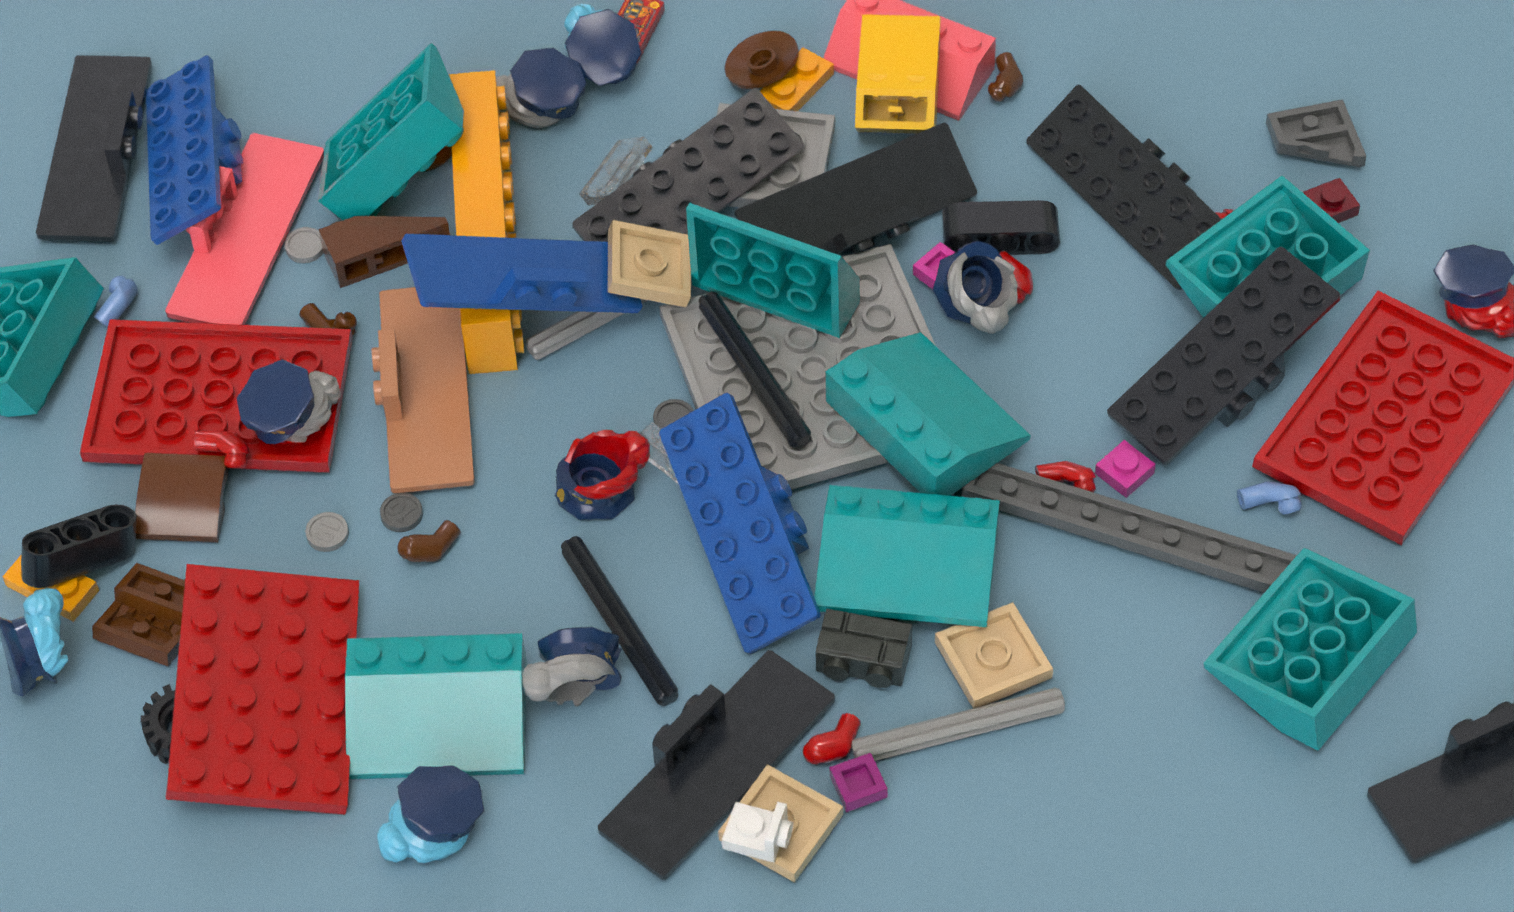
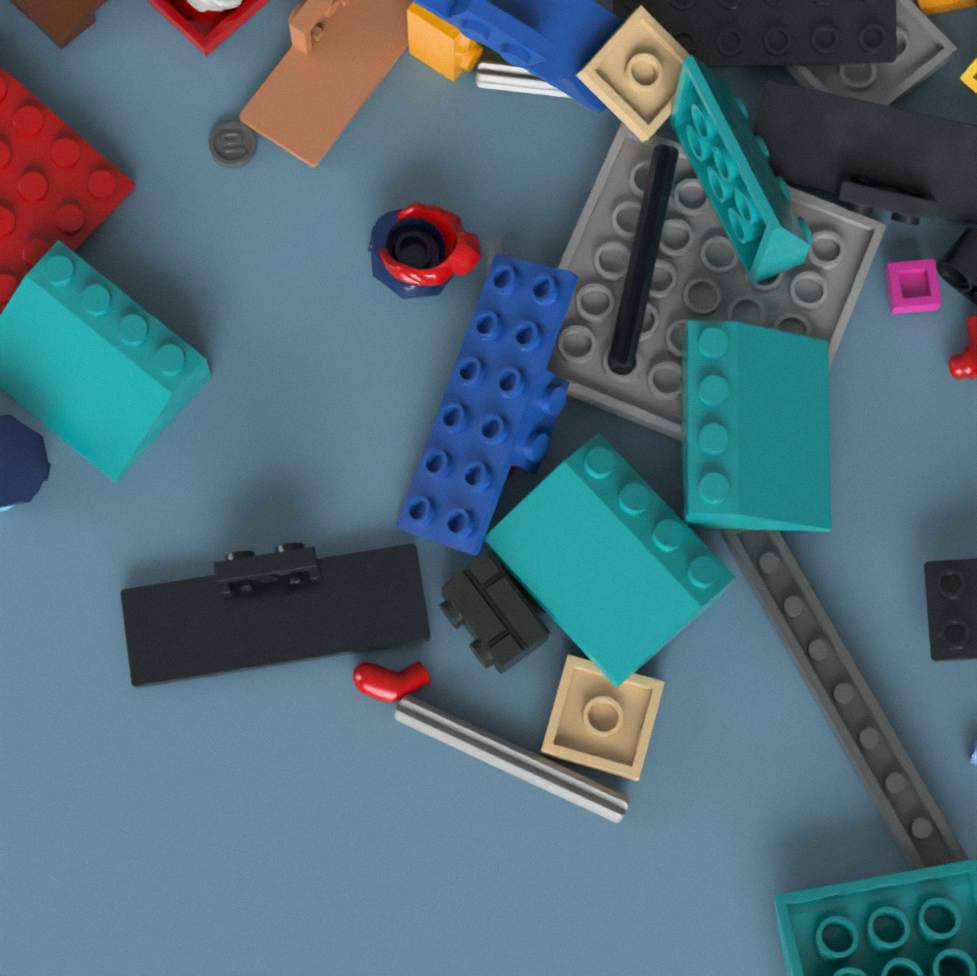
camera: 35 degrees right, 20 degrees up
(327, 531) = (156, 112): light grey piece -> none
(429, 547) = (222, 200): reddish brown arm -> none
(574, 665) = (221, 424): piece -> none
(619, 621) = (316, 406): black axle -> none
(670, 411) = (543, 241): dark grey piece -> none
(757, 831) = (236, 718): white bracket -> none
(810, 812) = (273, 721): tan plate -> none
(858, 782) = (373, 739): magenta plate -> none
(977, 287) = (921, 337): piece -> none
(1068, 471) = (840, 593): red arm -> none
(1125, 468) = (896, 628): dark pink plate -> none

